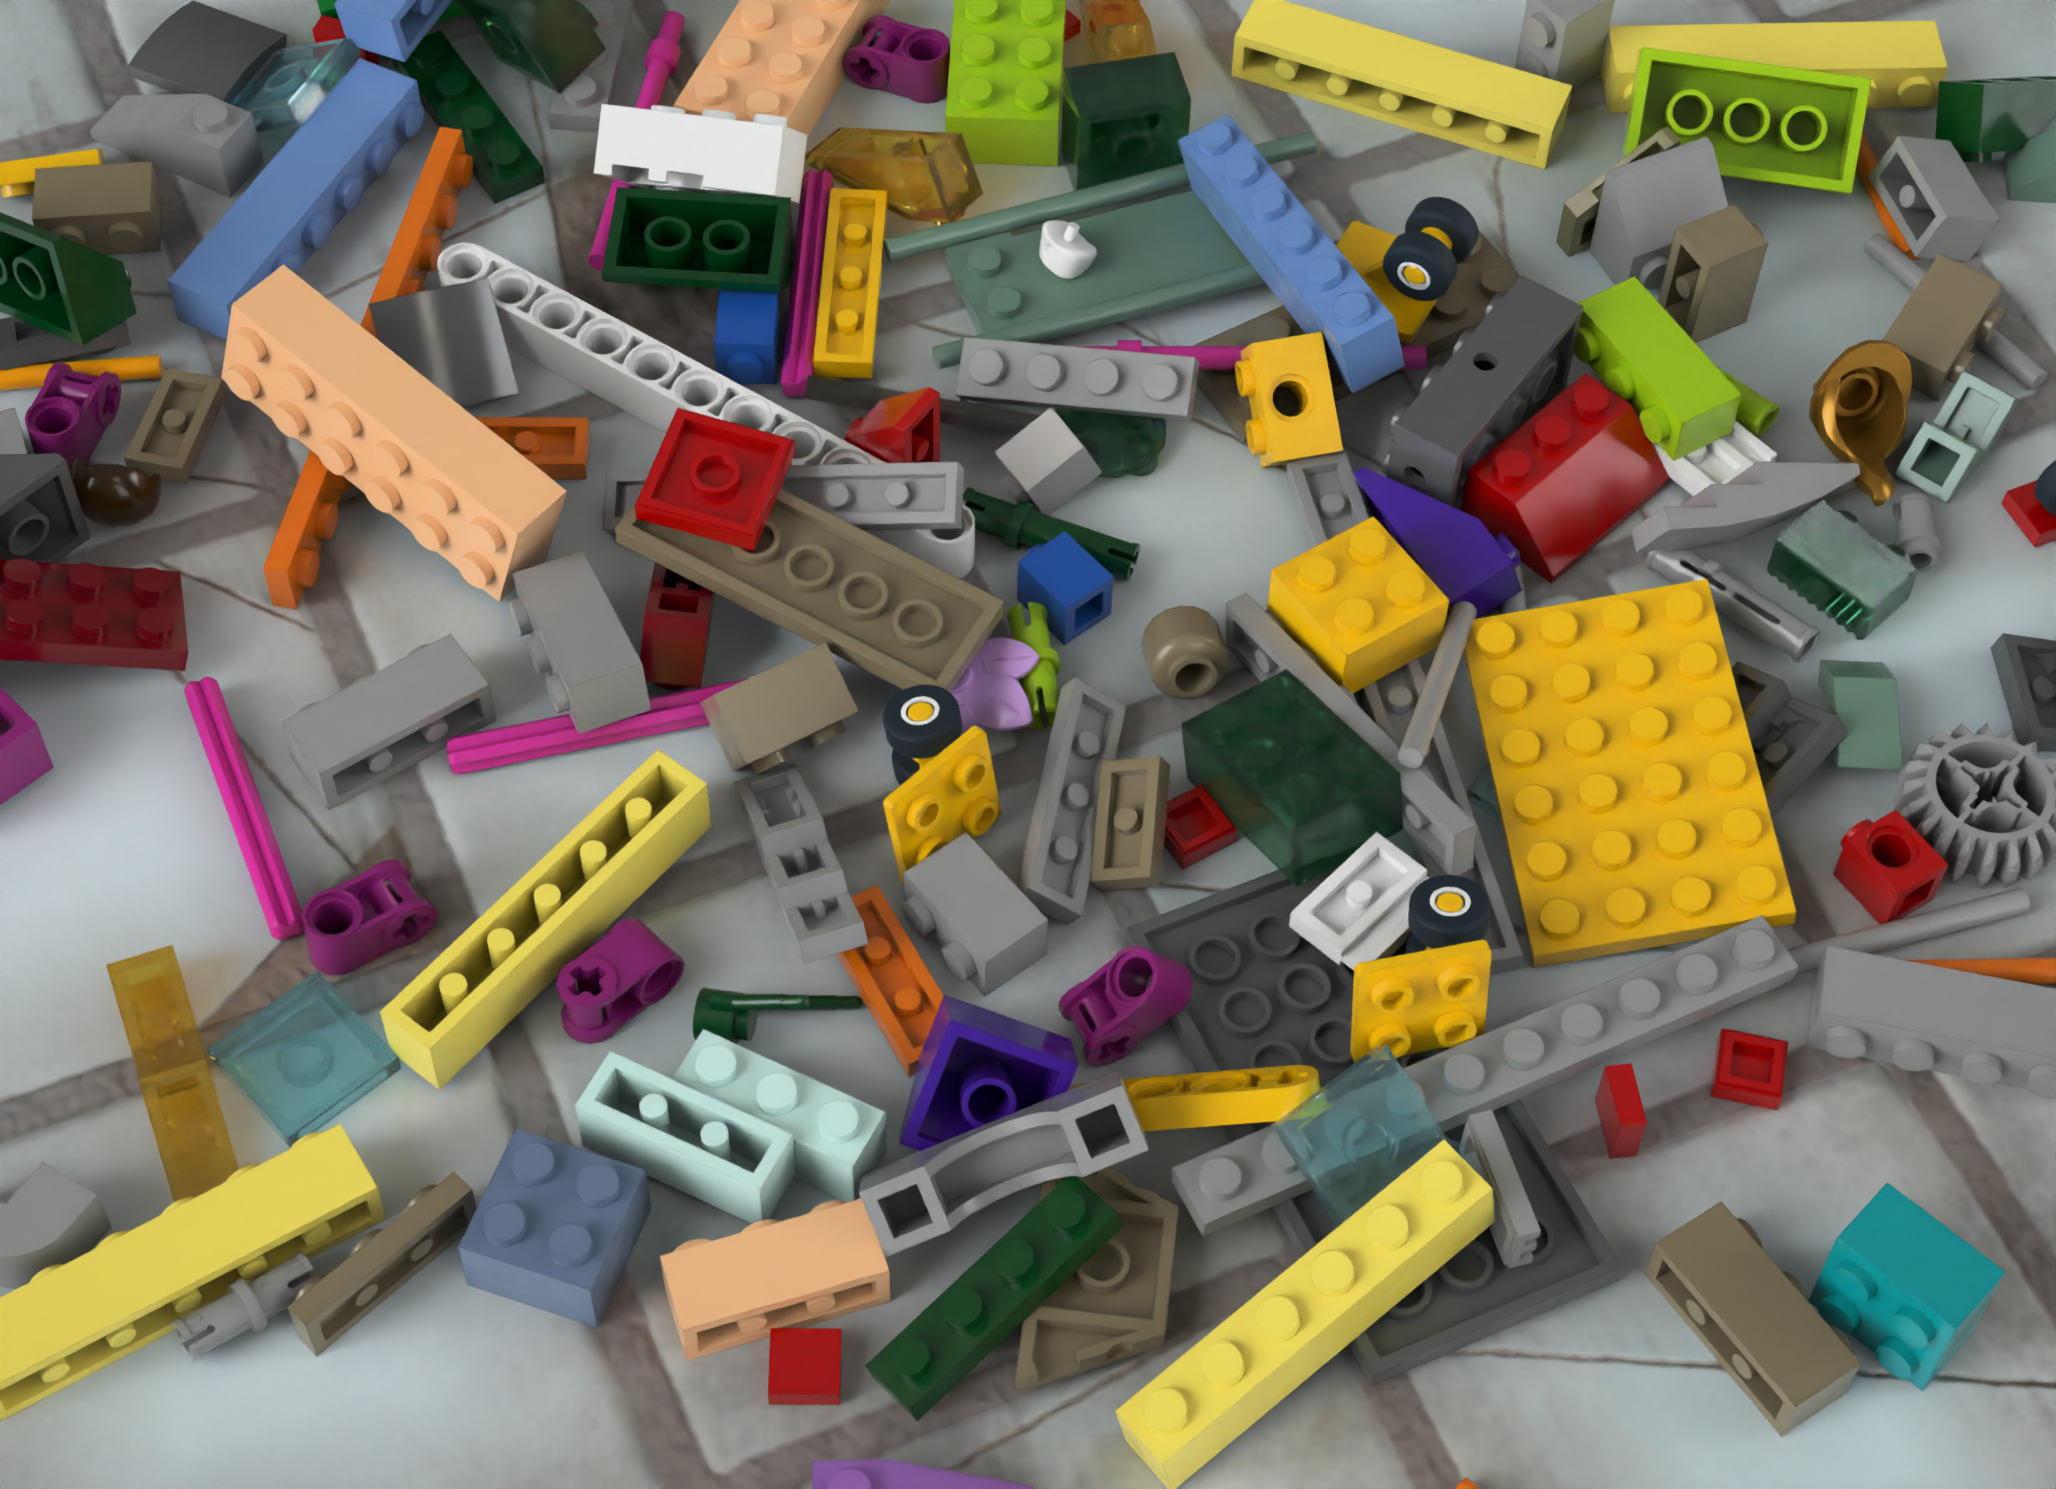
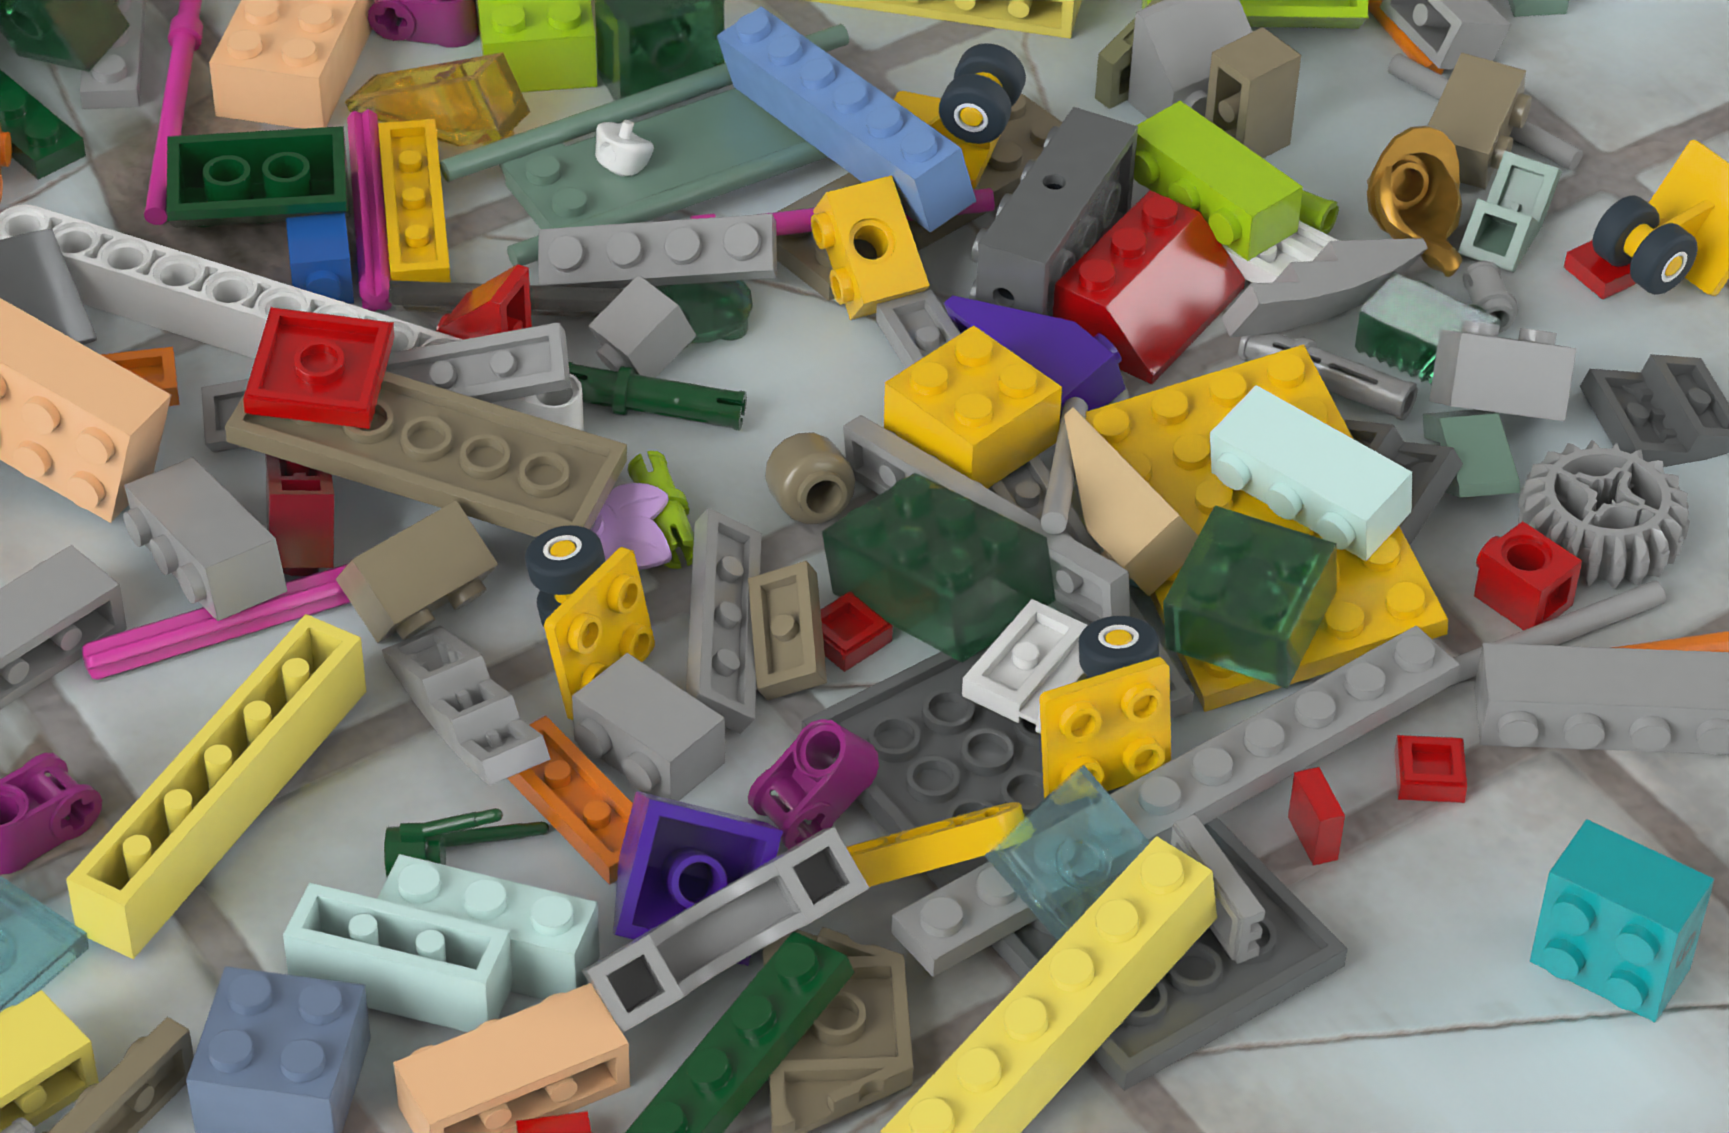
camera: 10 degrees left, 10 degrees down
(620, 976) = (297, 836): magenta piece -> none
(700, 153) = (244, 94): white wedge -> none
(1068, 584) = (685, 432): blue brick -> none
(1486, 744) = (1125, 511): none -> tan slope
(1597, 864) = (1250, 596): none -> clear green brick
(1683, 735) = (1310, 473): none -> light aqua brick
(1753, 1317) = (1480, 975): dark tan brick -> none
(1909, 633) = (1503, 374): none -> light grey brick

